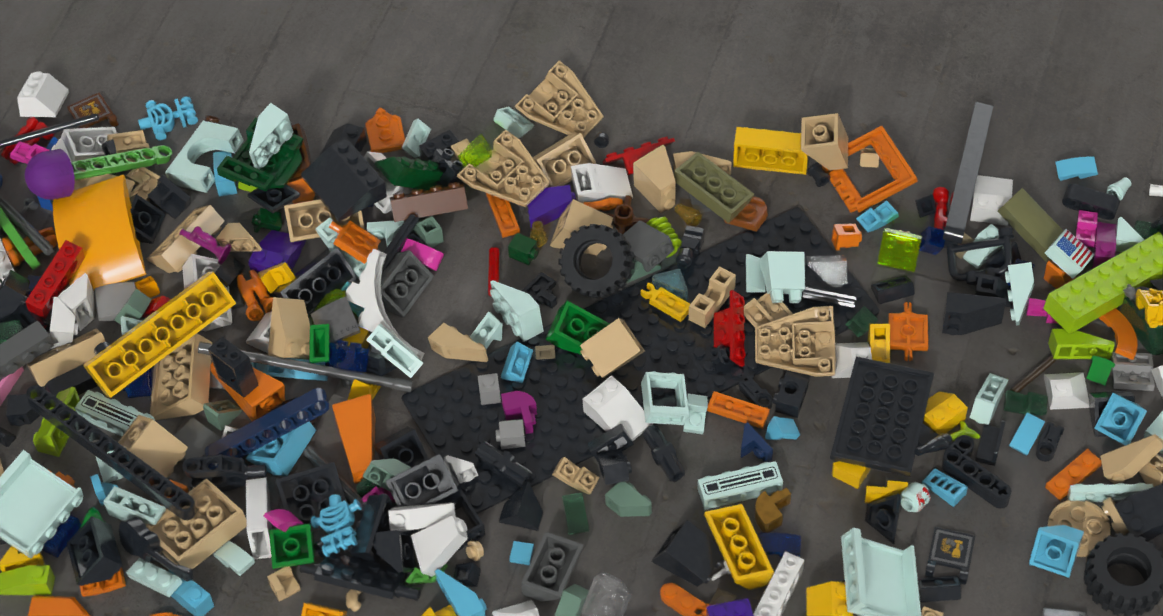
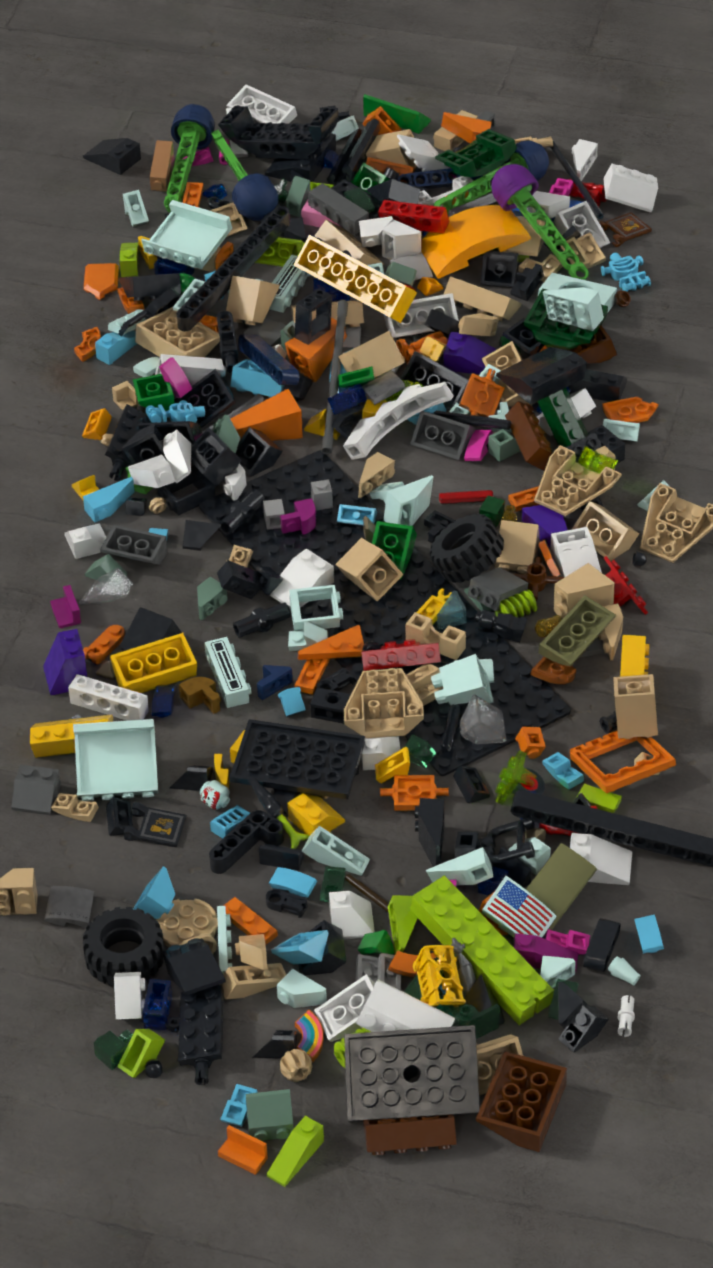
camera: 85 degrees right, 10 degrees down
(208, 242) = (464, 300): magenta piece -> none
(394, 350) = (355, 425): light aqua slope -> none
(575, 513) = (201, 564): clear green slope -> none
(711, 380) = (342, 645): none -> orange wing
(910, 194) = (603, 801): none -> lime tile

